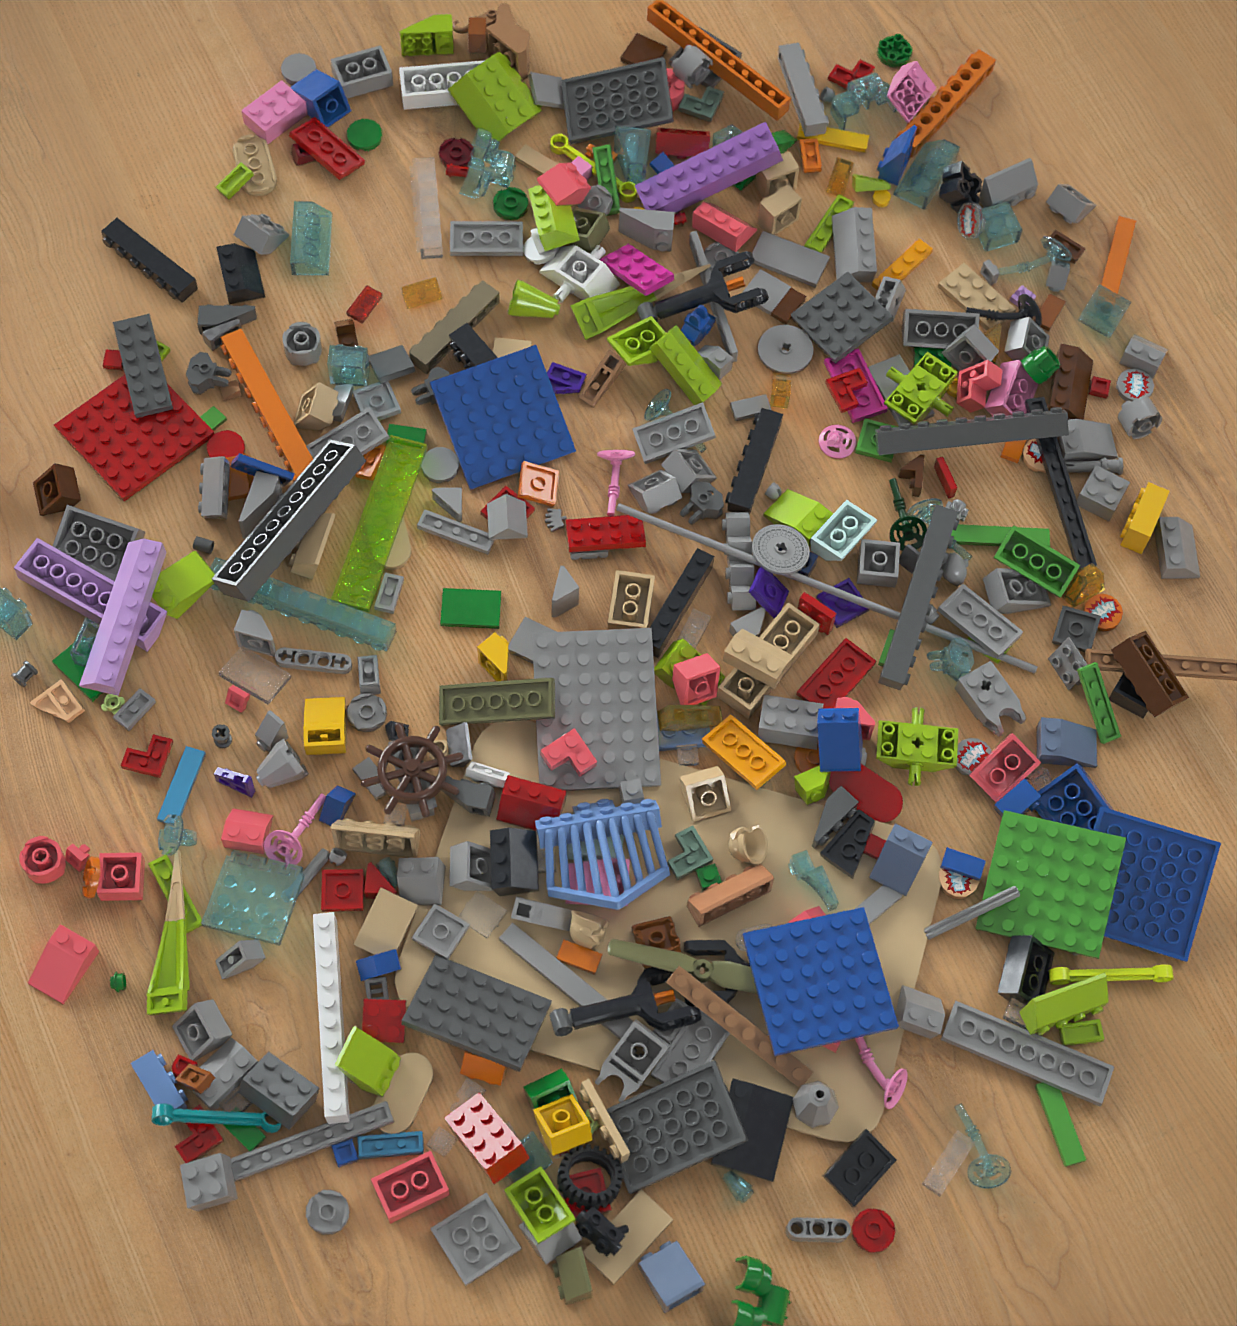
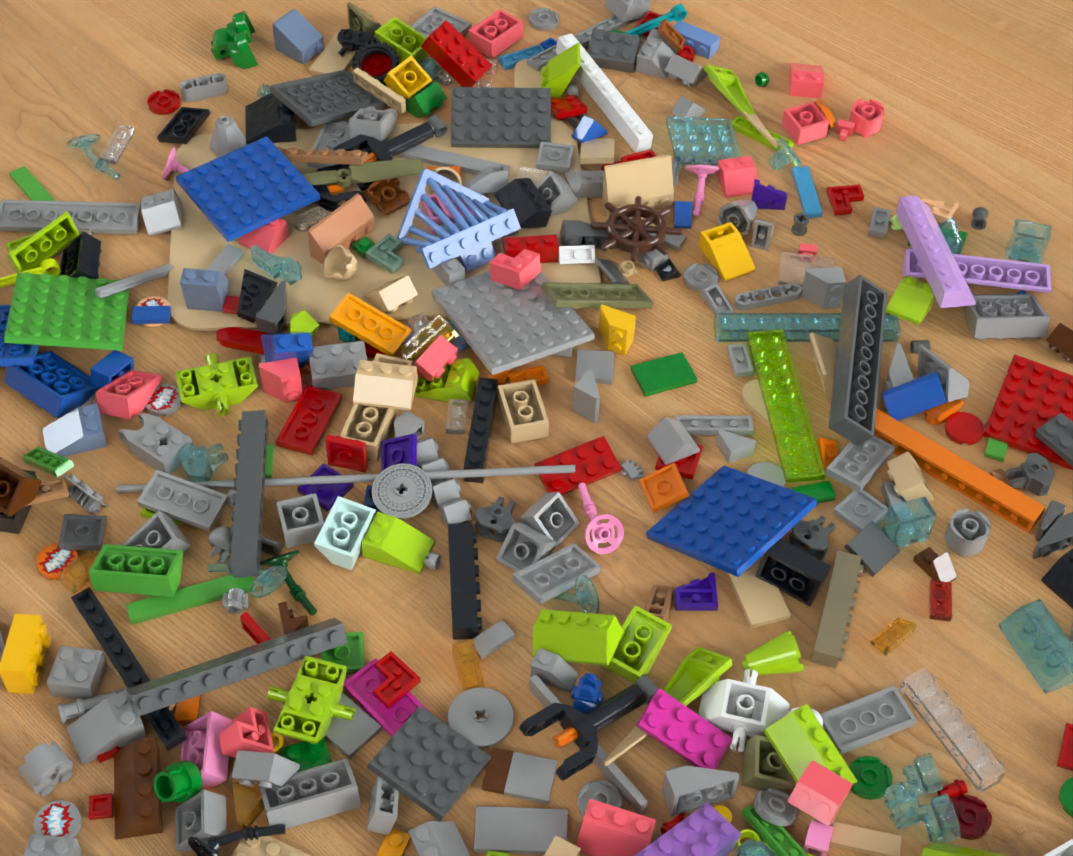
camera: 160 degrees right, 15 degrees down
(835, 439) = (385, 632): bright pink dish -> none

